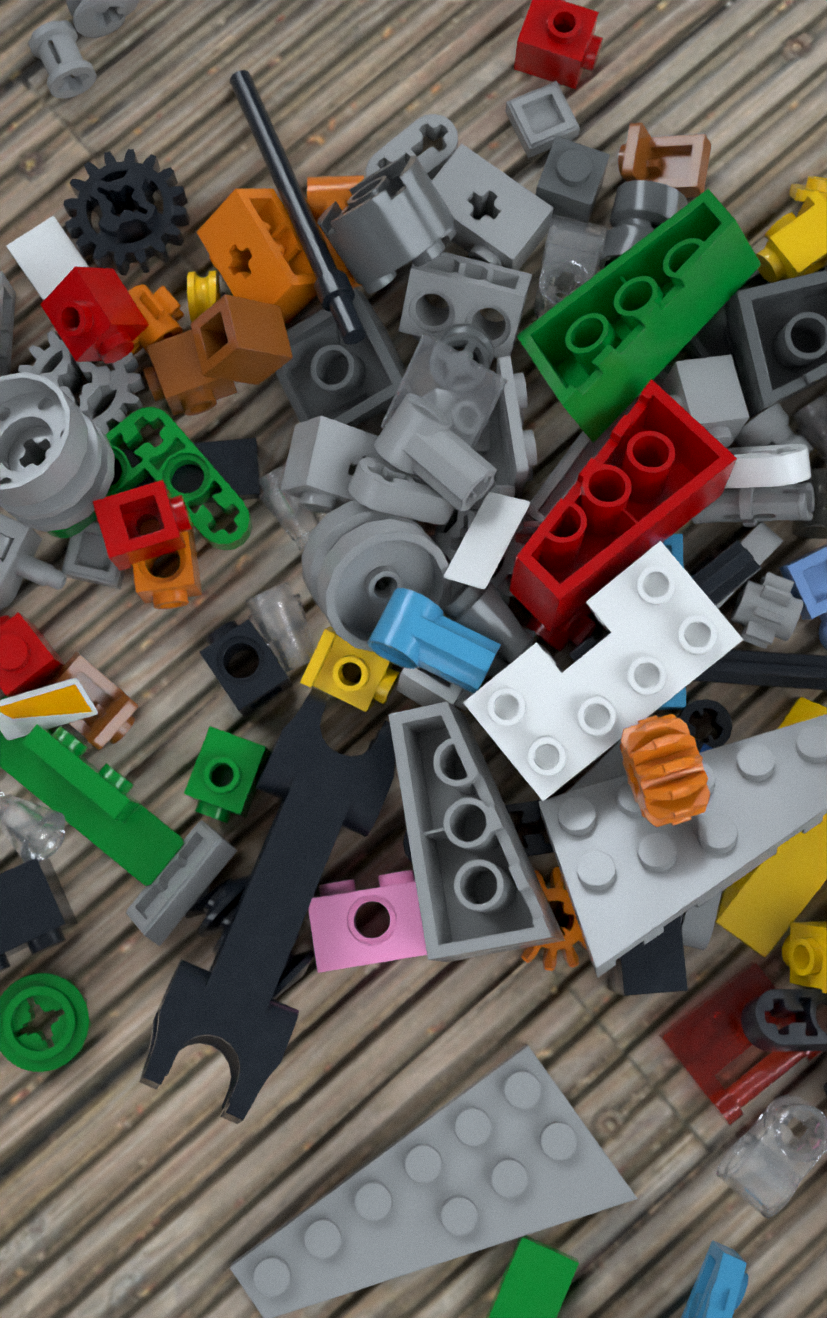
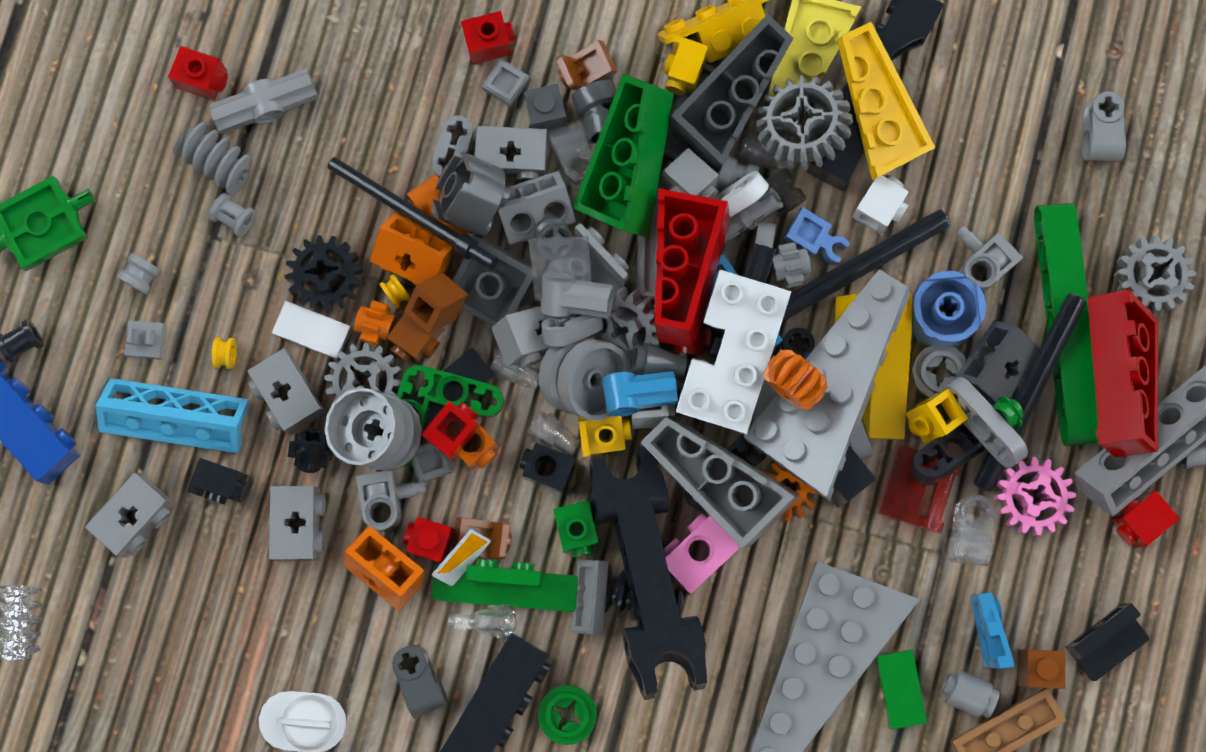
camera: 30 degrees left, 0 degrees up
(94, 315) = (352, 339): red brick -> none
(487, 540) = (631, 323): white sticker -> none

